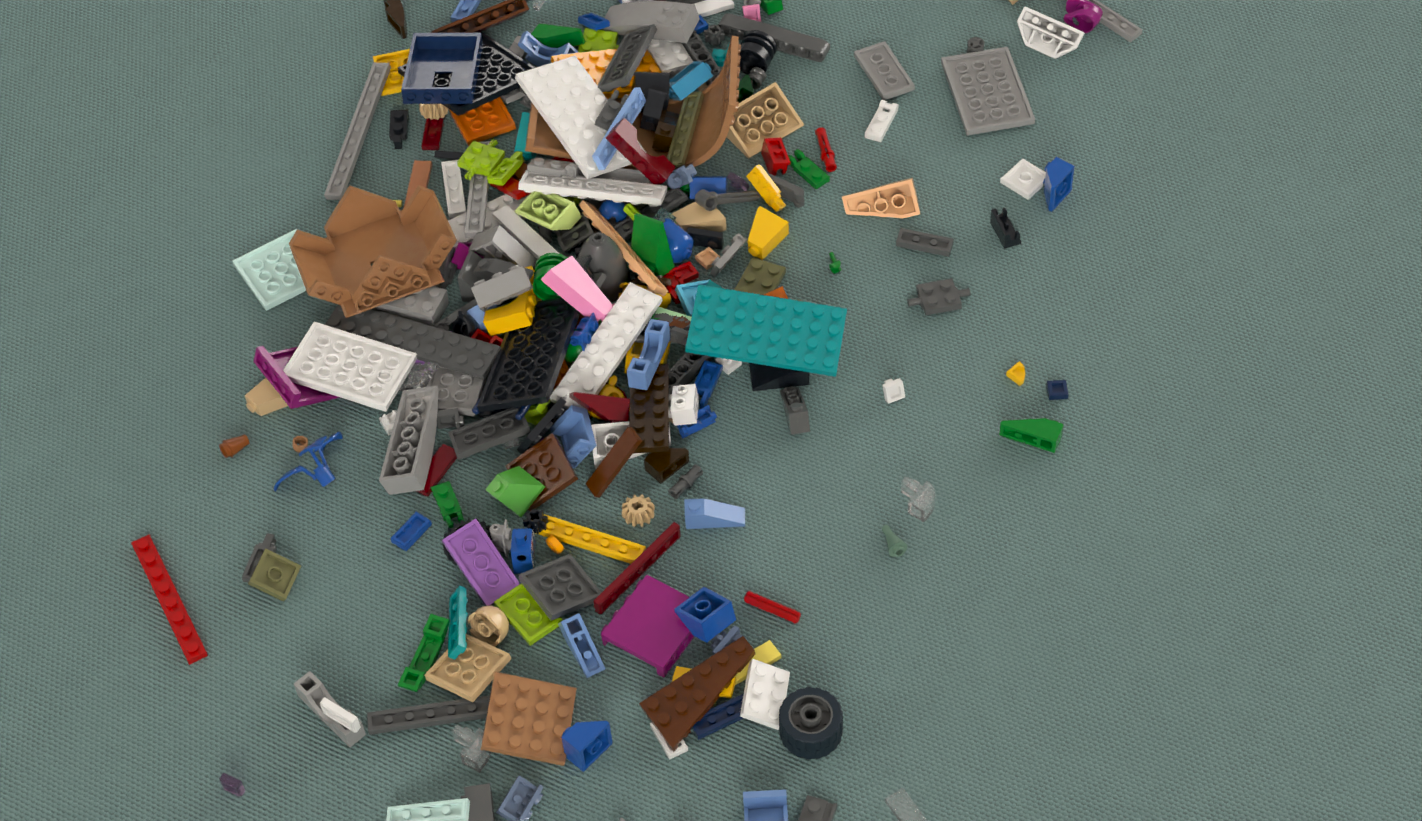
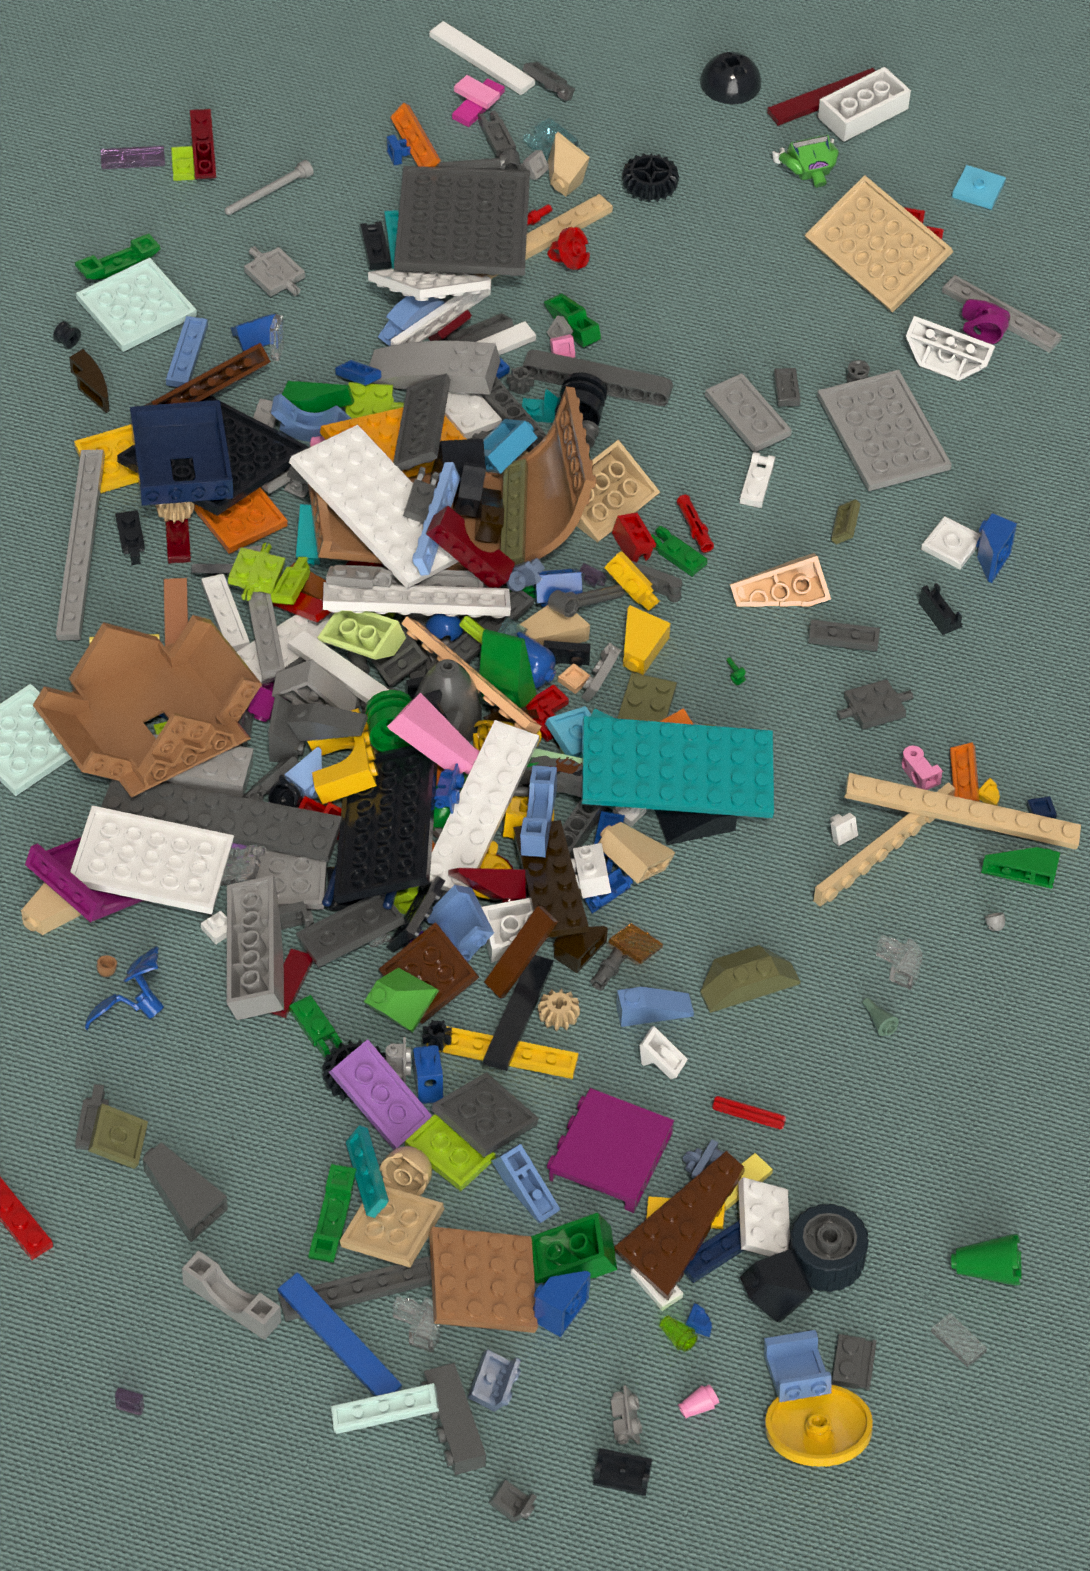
camera: 15 degrees left, 0 degrees up
(232, 446) = (18, 977): dark orange cone -> none
(316, 624) = (184, 1191): none -> dark grey slope
(340, 715) = (254, 1300): white tile -> none
(405, 751) = (338, 1336): none -> blue tile
(411, 531) = (277, 1063): blue plate -> none
(501, 287) = (333, 740): light grey wedge -> none
(554, 544) = (464, 1062): light orange tile -> none
(605, 510) = (518, 1013): none -> black tile
(608, 701) = (574, 1248): none -> green slope
(637, 568) = (574, 1082): dark red tile -> none
(677, 780) = (680, 1334): none -> clear neon green cone
(696, 771) = (699, 1321): none -> blue tile
(706, 614) = (676, 1128): blue slope -> none
(707, 549) = (660, 1051): none -> white slope
(709, 464) = (635, 943): none -> clear orange piece
(722, 393) = (635, 852): none -> tan slope
(762, 748) = (777, 1284): none -> black slope
(792, 499) = (746, 977): none -> olive wedge
(795, 410) = (727, 865): dark grey slope -> none
(918, 54) = (787, 387): none -> dark grey plate
(923, 405) = (873, 853): none -> tan plate
(943, 156) = (845, 521): none -> olive plate
(944, 748) = (991, 1260): none -> green cone
(963, 350) = (919, 769): none -> bright pink leg
(991, 385) = (962, 811): none -> tan plate
(999, 357) = (965, 771): none -> orange tile
(1002, 474) = (995, 921): none -> light grey hinge

